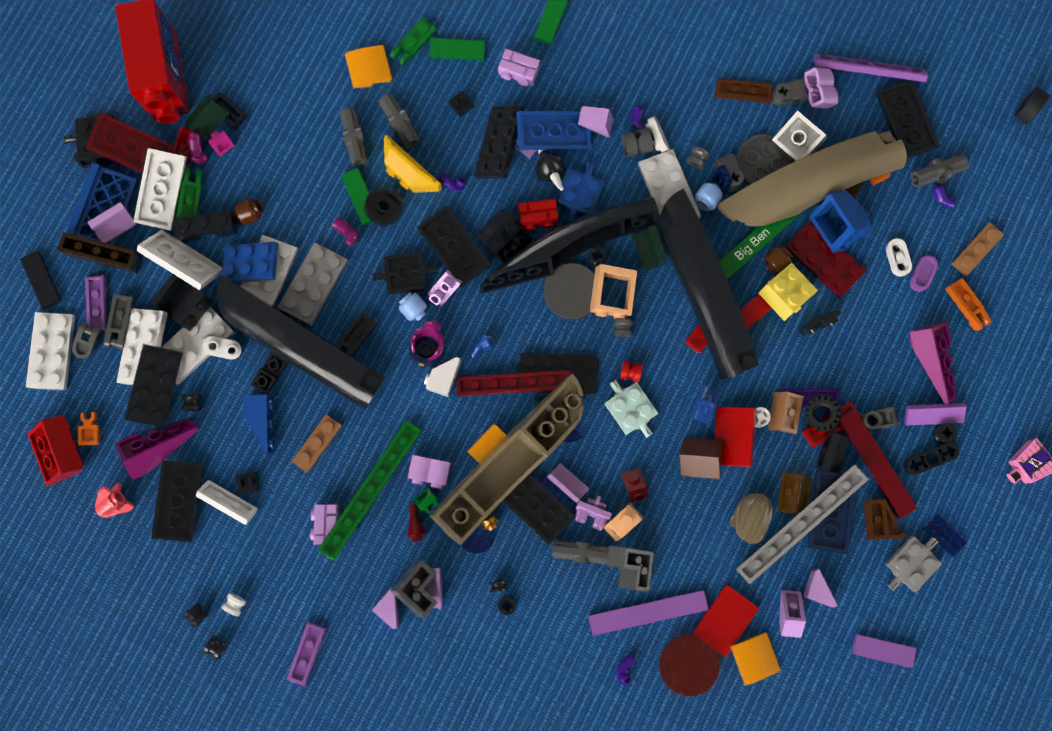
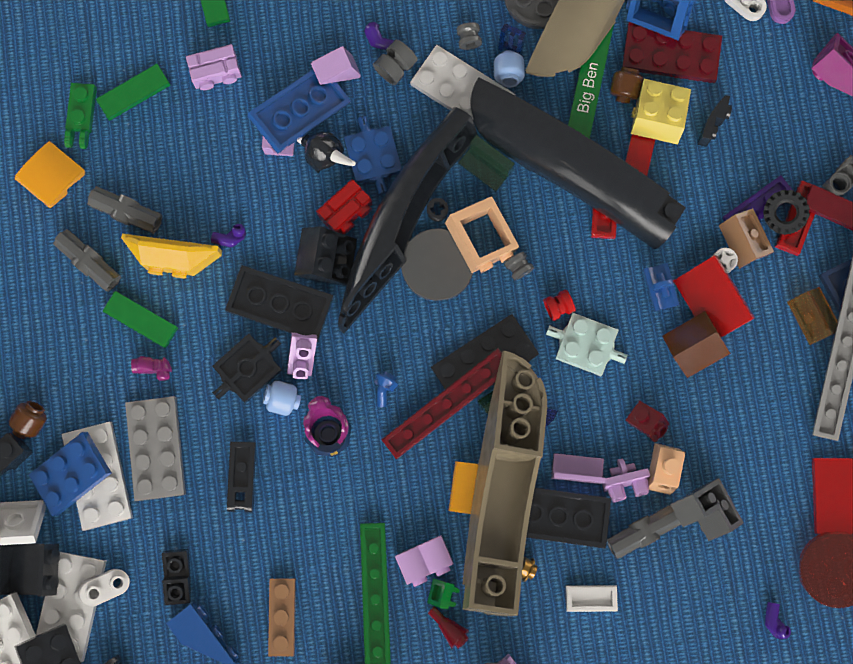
camera: 35 degrees left, 0 degrees up
(297, 344) = (184, 525): black slope -> none
(382, 197) = (178, 326): black plate -> none
(443, 377) = (367, 451): white slope -> none
(461, 103) = (178, 147): black tile -> none
(477, 543) = (531, 599): clear blue tile -> none
(498, 143) = (249, 161): black plate -> none
(498, 586) = (583, 629): black bush -> none
(503, 610) = (606, 652): black bush -> none
(518, 570) = (591, 598): none -> white tile
(648, 612) = (755, 545): medium lavender tile -> none
(660, 141) = (419, 46): white plate -> none
(732, 166) = (506, 16): dark grey piece -> none
(752, 517) = (793, 369): dark tan hair -> none
(832, 452) = (822, 245): black panel -> none

